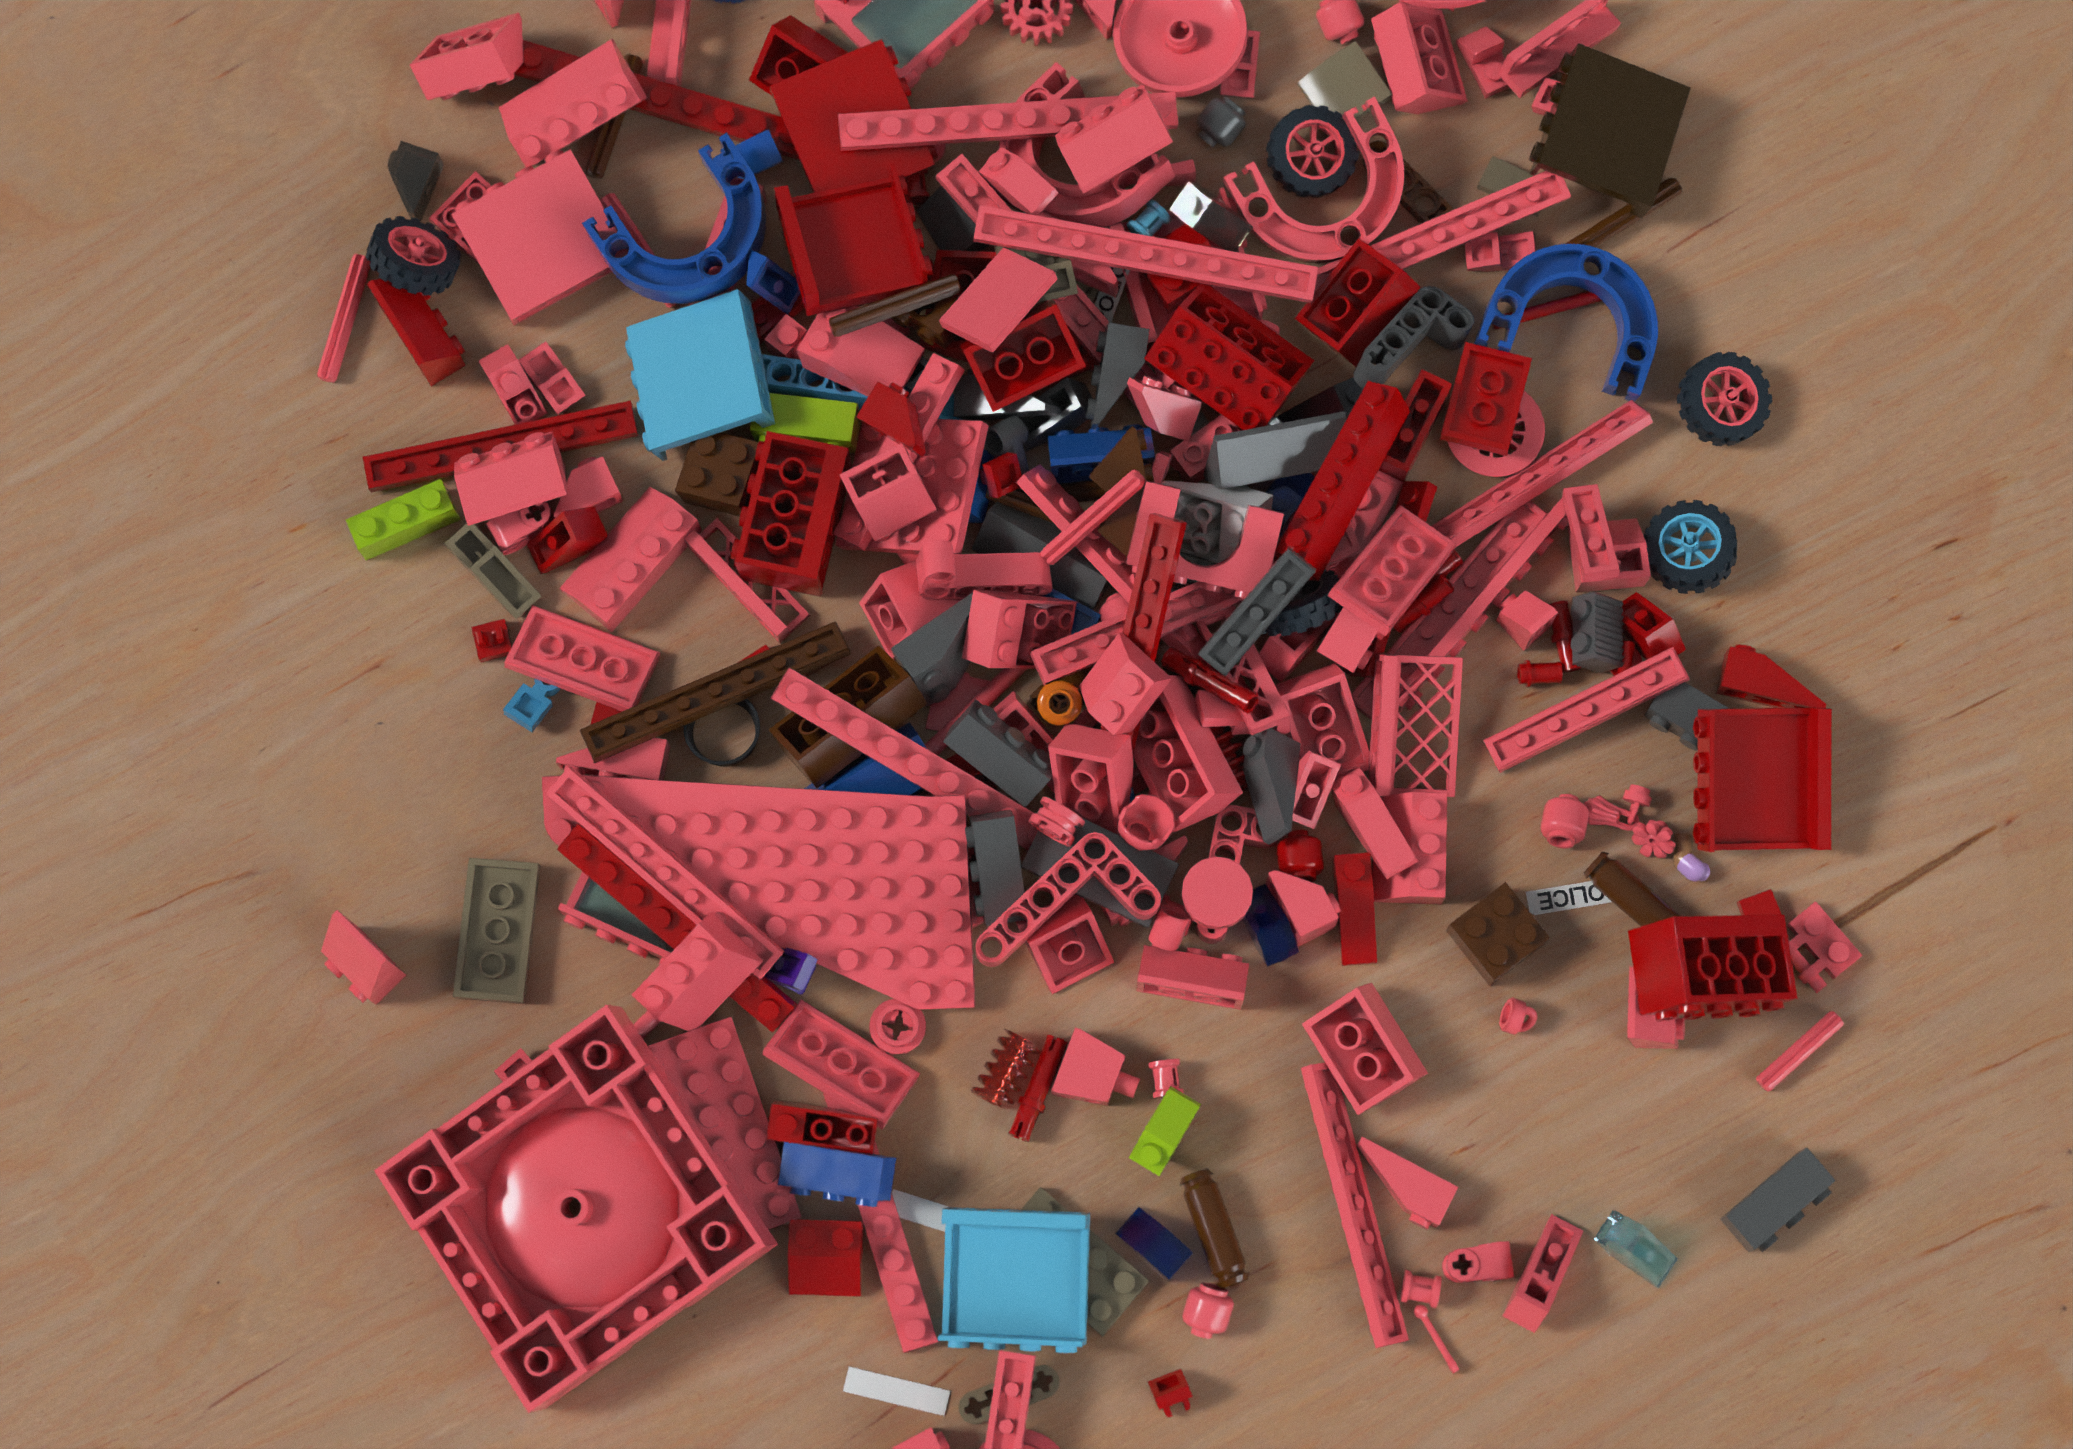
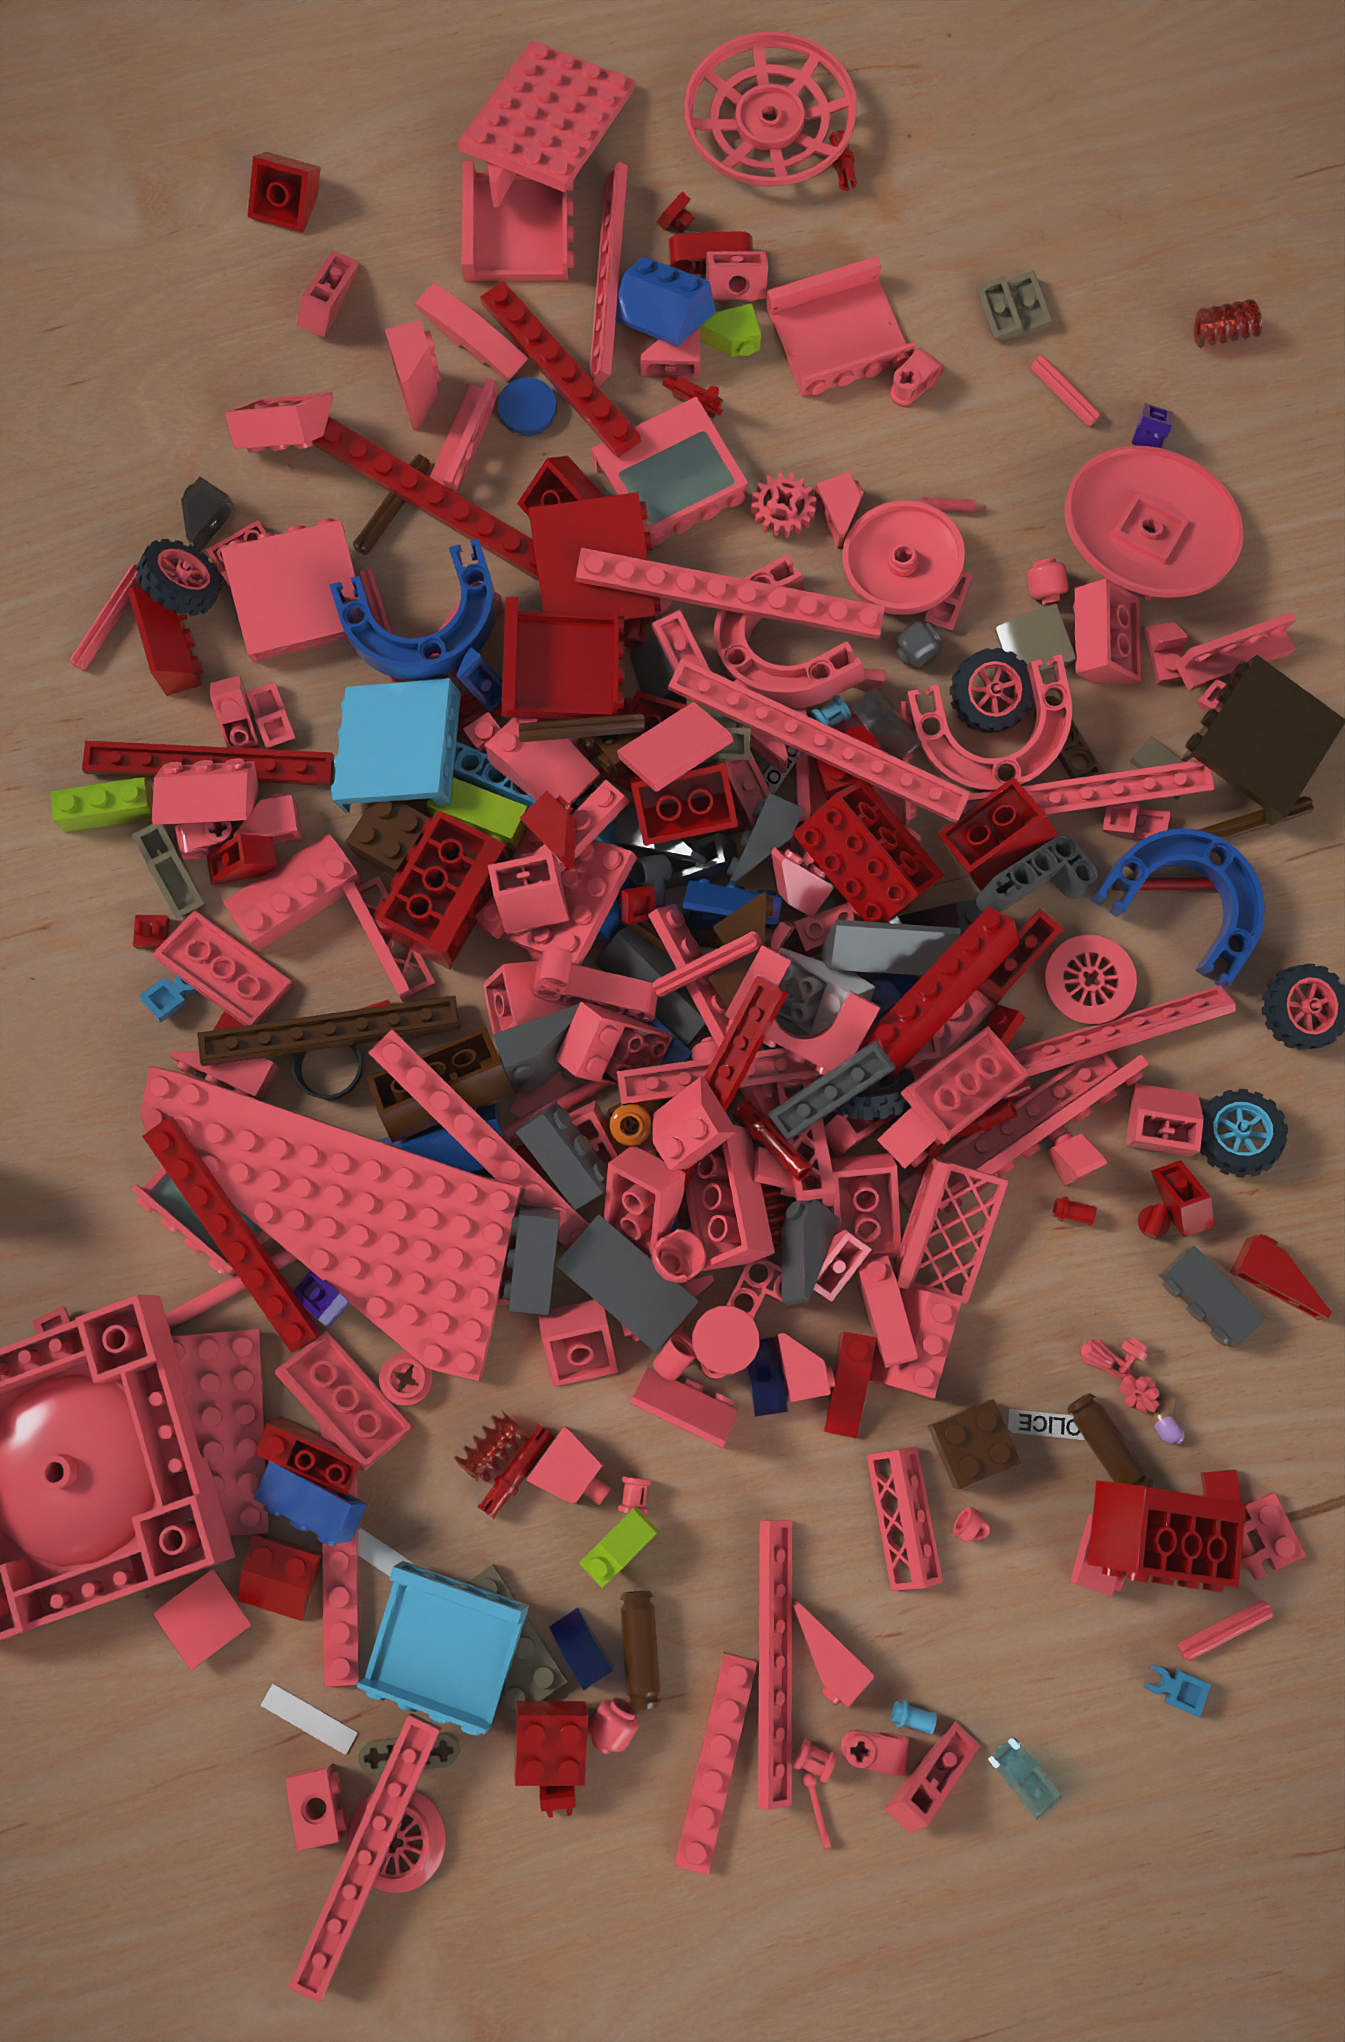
camera: 10 degrees right, 0 degrees up
(496, 930) = (75, 1193): dark tan plate -> none
(571, 104) = (355, 482): coral slope -> none
(656, 863) = (232, 1184): coral plate -> none
(697, 975) = (234, 1285): coral slope -> none
(758, 152) = (503, 566): blue slope -> none
(759, 1320) = (201, 1619): none -> coral slope
(1017, 182) = (722, 647): coral slope -> none
(1056, 821) = (596, 1234): coral wheel -> none
(1062, 892) = (583, 1301): coral beam -> none
(1113, 137) = (818, 630): coral slope -> none
(1150, 1341) = (550, 1743): none -> red brick
(1300, 855) = (812, 1323): red head -> none
(1321, 1319) = (715, 1763): none -> coral plate
(1364, 1048) = (823, 1518): coral slope -> none
(1459, 1027) = (911, 1518): none -> coral fence
(1486, 398) = (1090, 950): red plate -> none
(1508, 1221) = (913, 1717): none -> medium azure pin
(1563, 635) = (1106, 1186): red pin -> none
(1564, 821) = (1062, 1354): coral head -> none
(1586, 709) = (1109, 1257): coral tile -> none
(1590, 532) = (1155, 1098): coral plate -> none
(1597, 632) = (1136, 1188): dark grey brick -> none
(1763, 778) = (1257, 1367): red panel -> none
(1772, 1121) = (1182, 1690): none -> dark azure plate
(1779, 1201) = (1170, 1770): dark grey brick -> none

